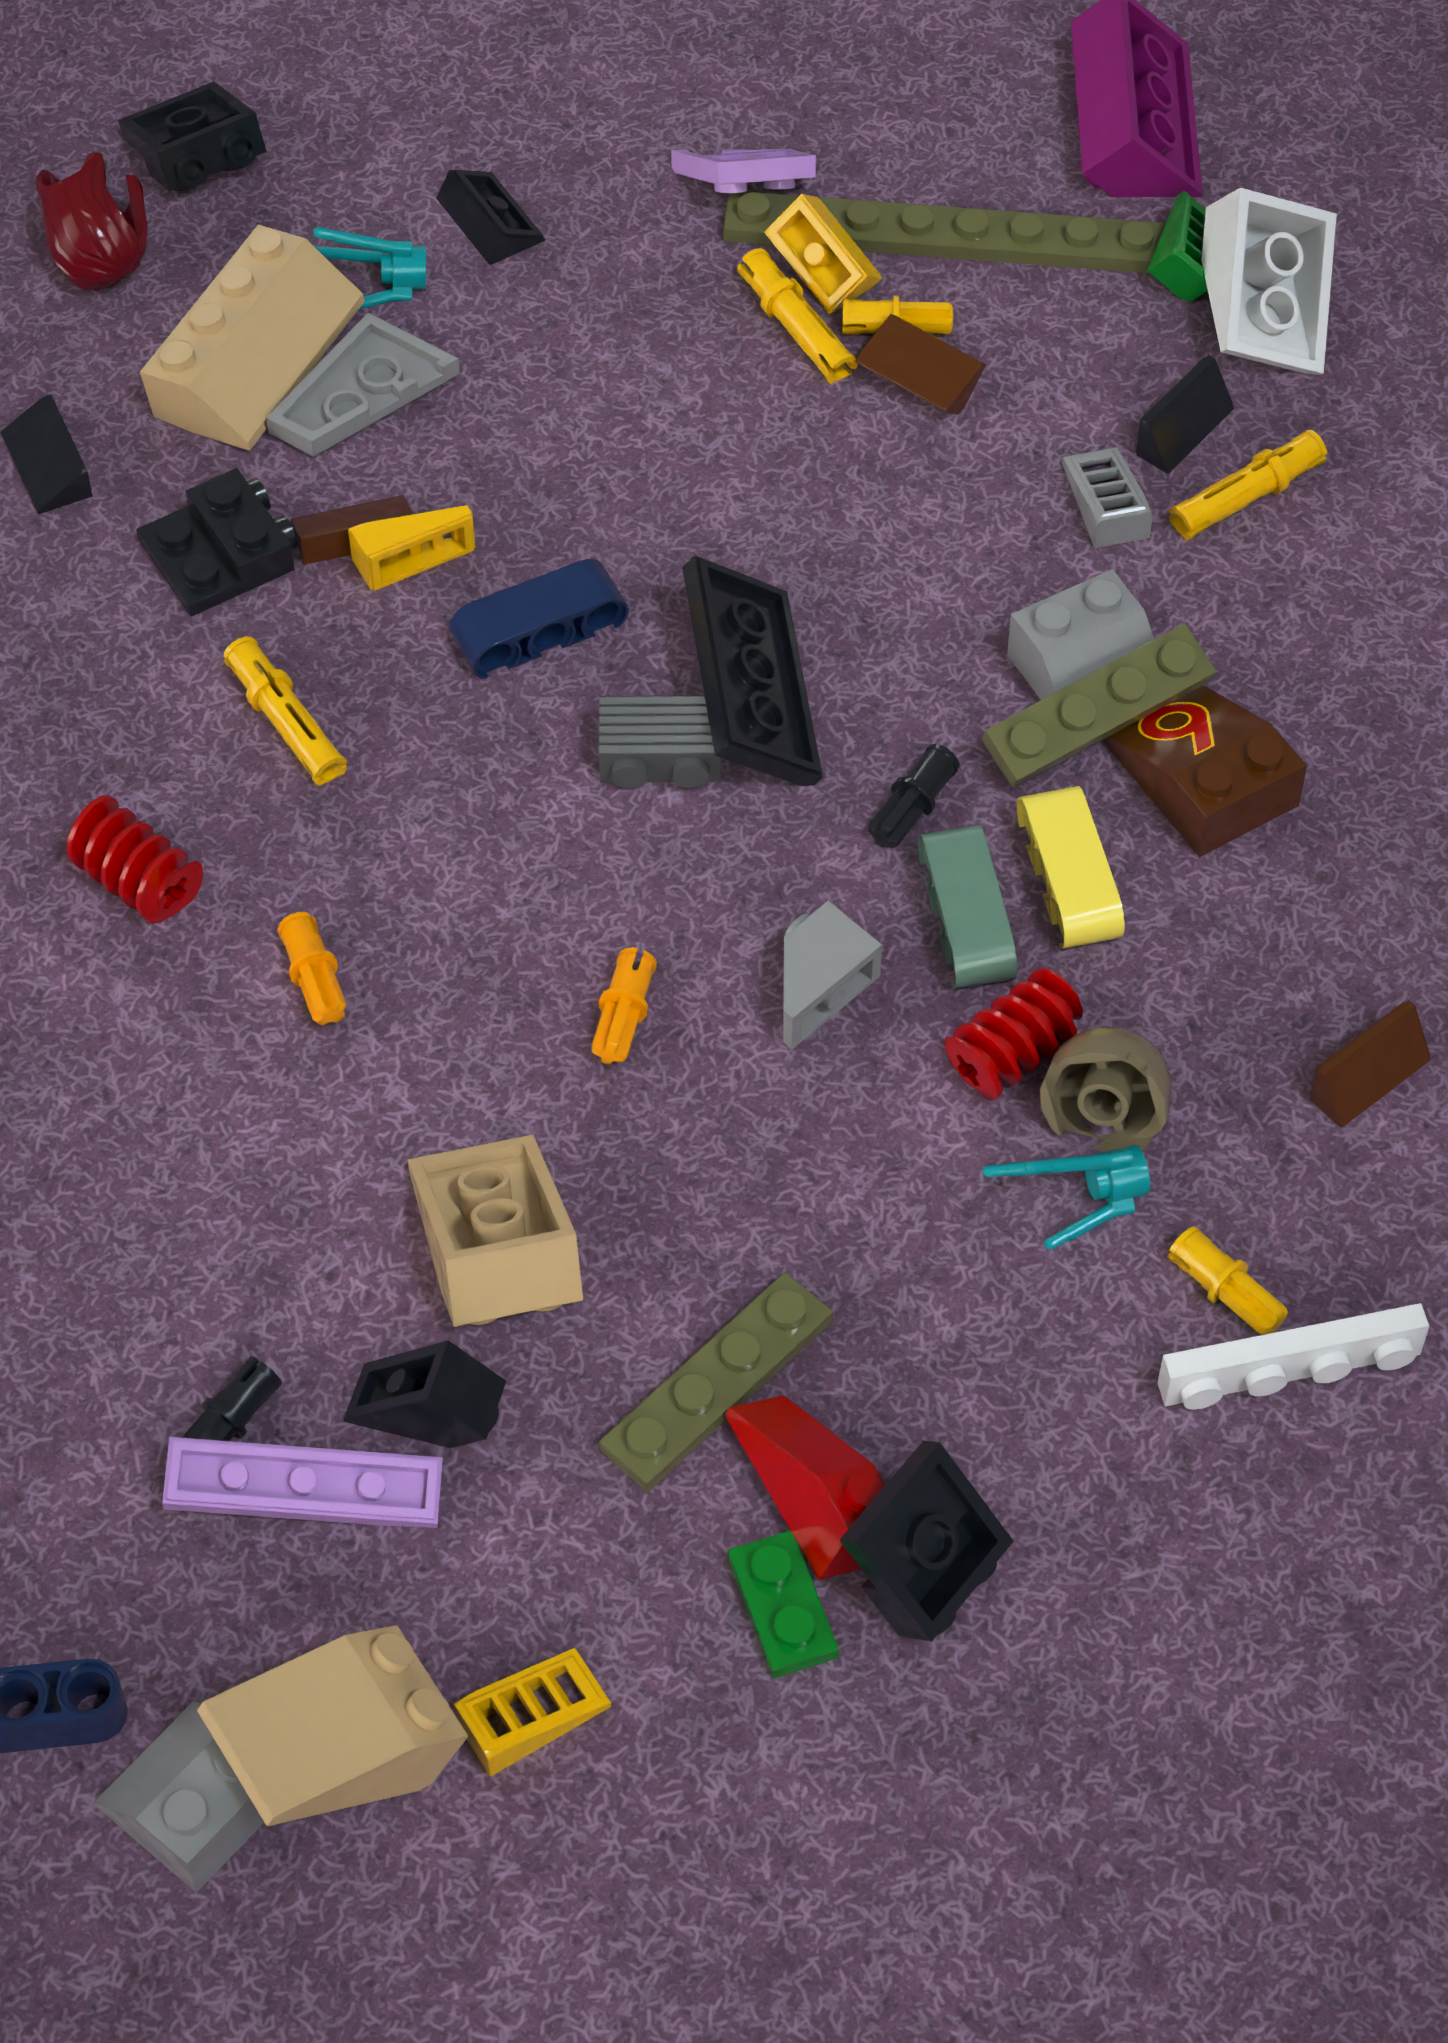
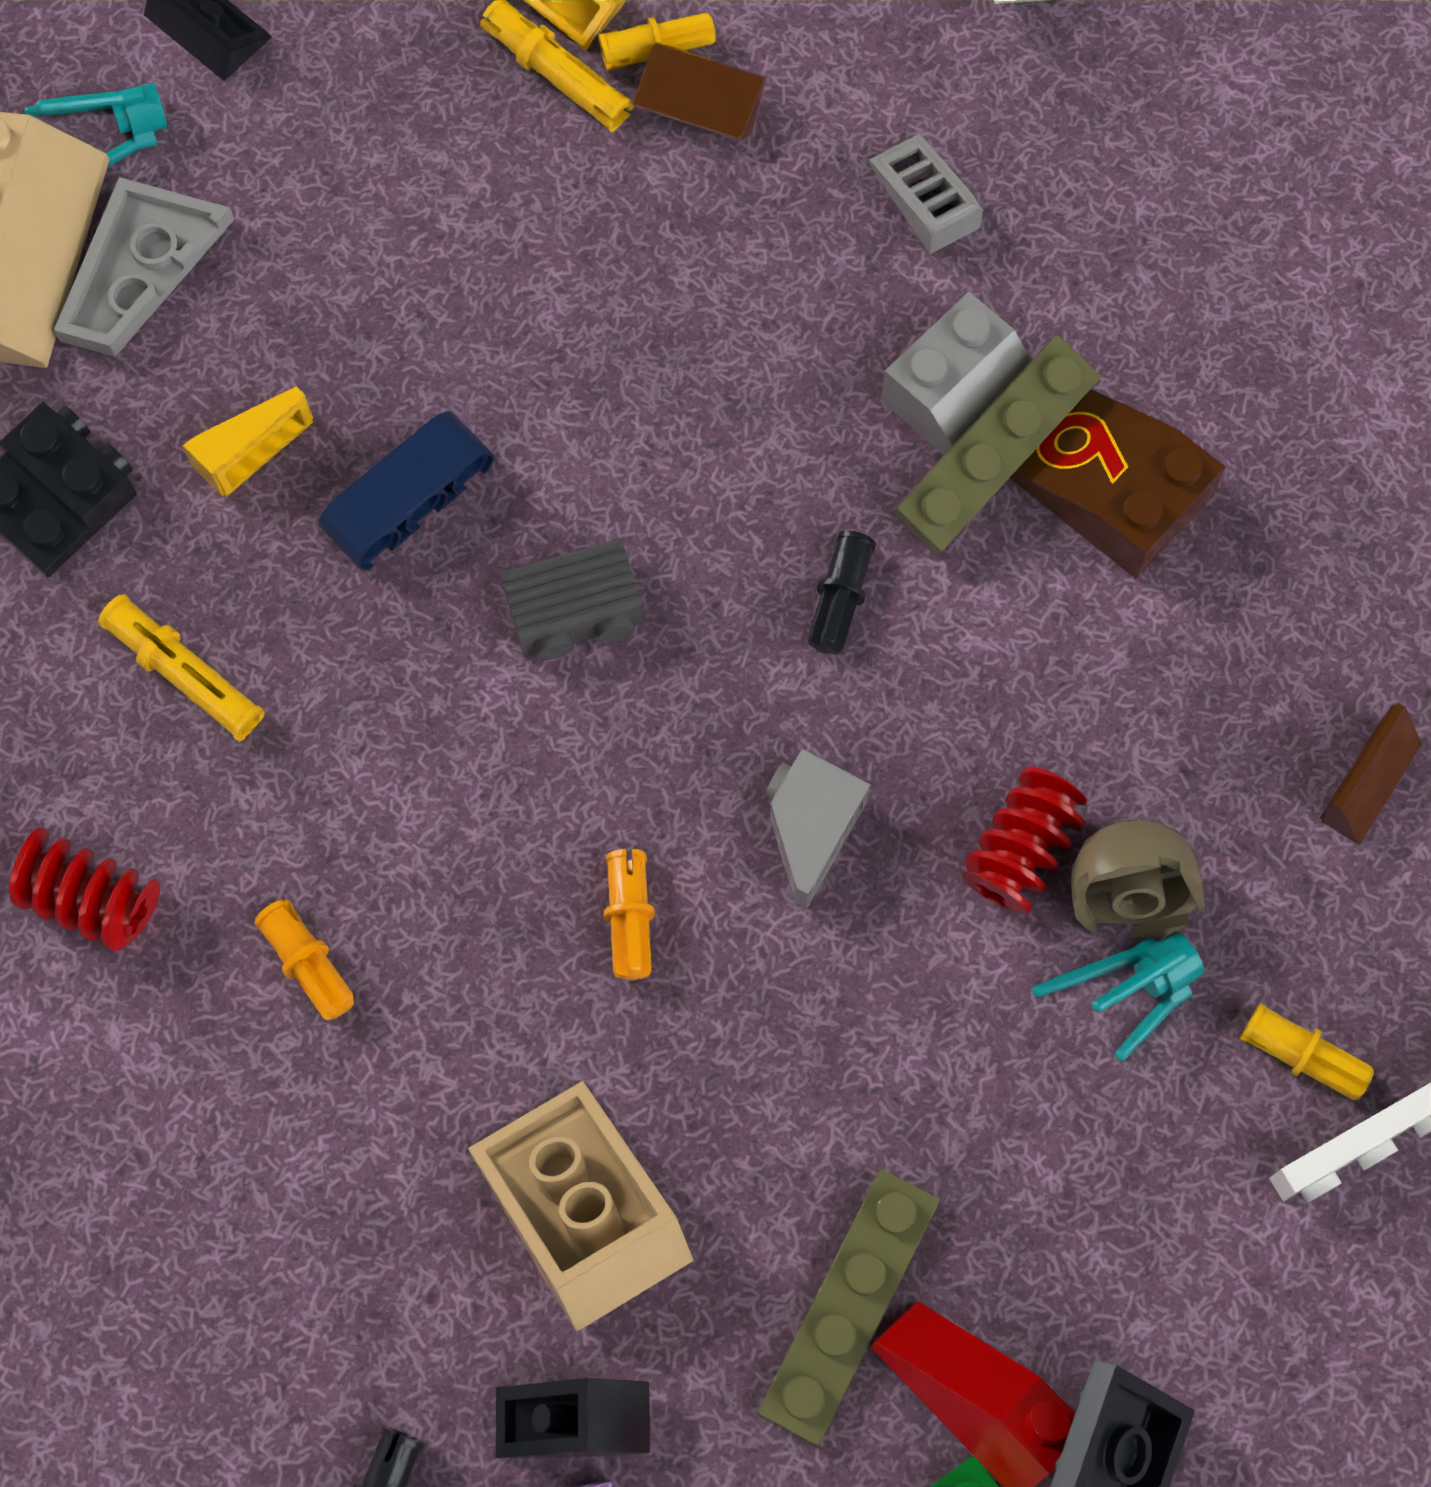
camera: 15 degrees left, 15 degrees up
(326, 535) = (157, 442): reddish brown slope -> none
(751, 673) = (642, 501): black tile -> none
(970, 906) = (936, 704): sand green beam -> none
(1073, 866) = (1022, 630): light yellow beam -> none
(1184, 416) = (977, 84): black slope -> none
(1266, 473) = (1077, 126): yellow pin -> none

